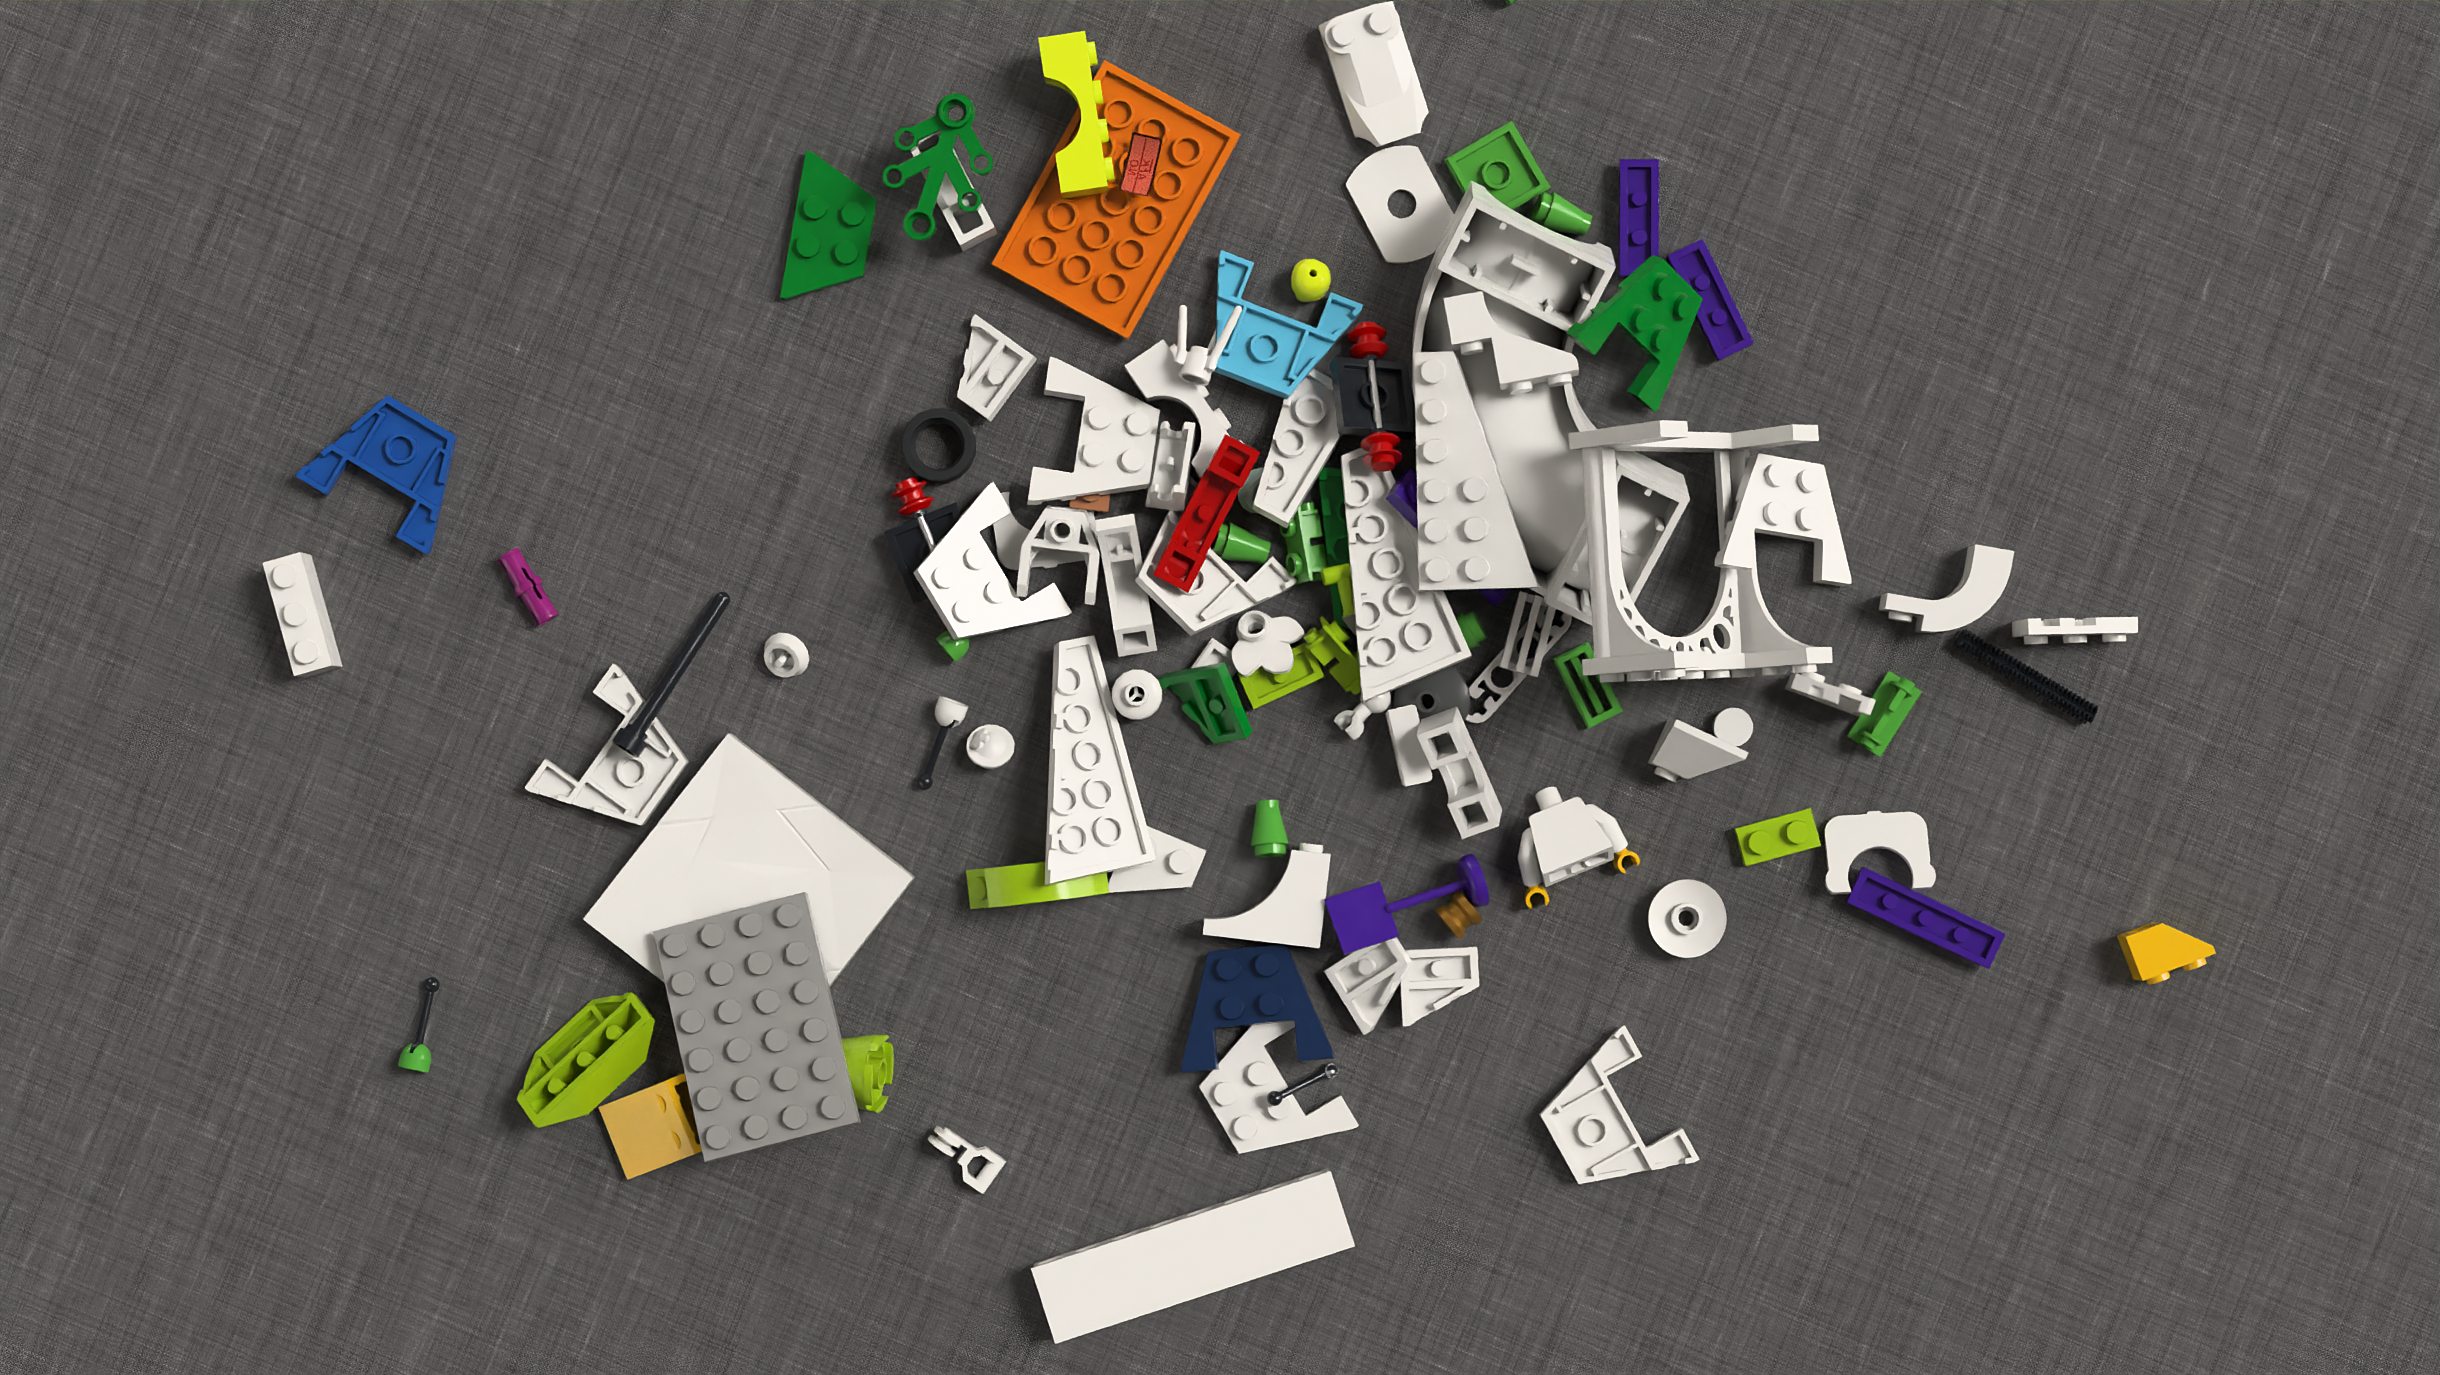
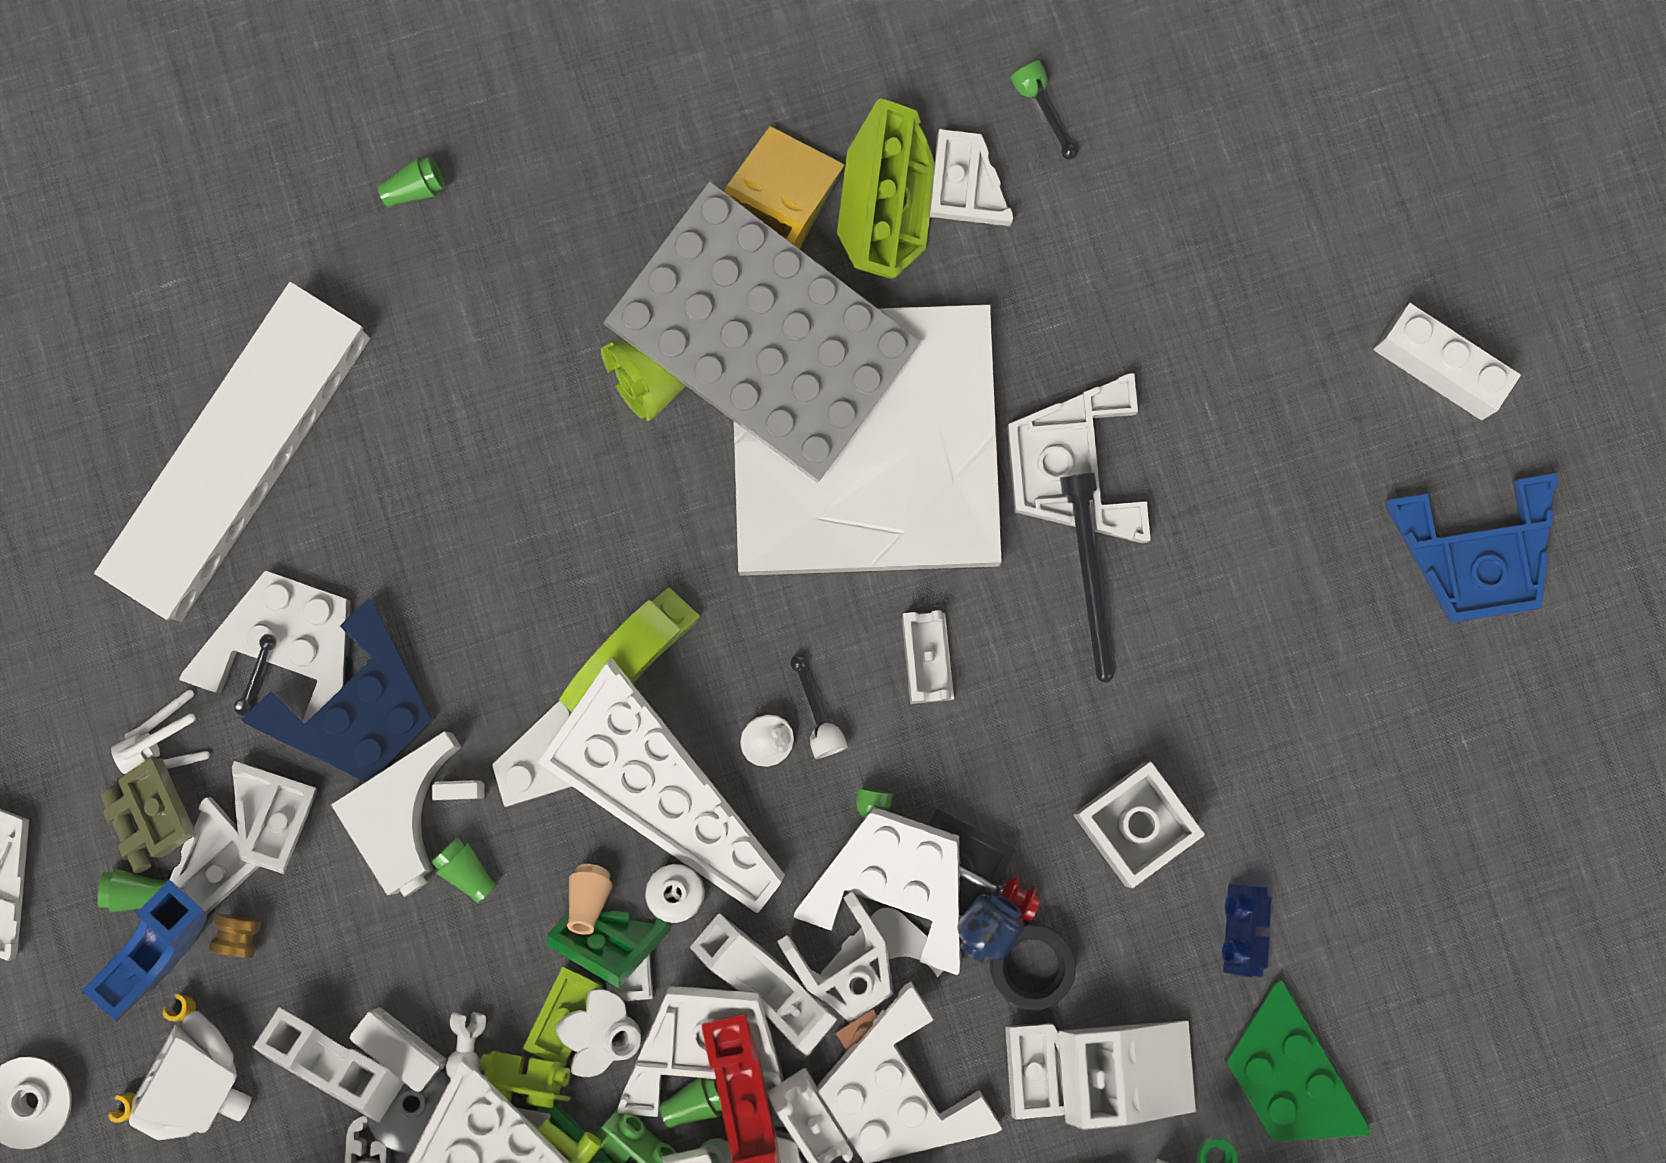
camera: 140 degrees right, 5 degrees down
(523, 1023) = (965, 182): none -> white wing
(528, 587) = (1278, 545): magenta pin -> none
(764, 362) = (1243, 950): none -> clear blue hinge
(785, 655) = (1009, 671): white hat -> none
(786, 479) = (1138, 824): none -> white brick
(834, 711) = (927, 657): none -> white hinge
(913, 1349) = (413, 182): none -> bright green cone
(934, 324) = (1126, 1074): none -> white slope
(943, 495) = (990, 927): none -> dark blue head
(947, 1139) = (526, 378): white piece -> none
(1197, 742) = (587, 895): none -> light nougat cone
(1228, 887) = (458, 790): none -> white tile
(1365, 917) = (309, 864): dark purple piece -> none
(1426, 1098) = (141, 746): none -> white plant
(1442, 1047) = (156, 809): none -> olive plate
(1507, 1005) = (126, 890): none -> bright green cone
(1521, 951) = (164, 935): none -> blue arch

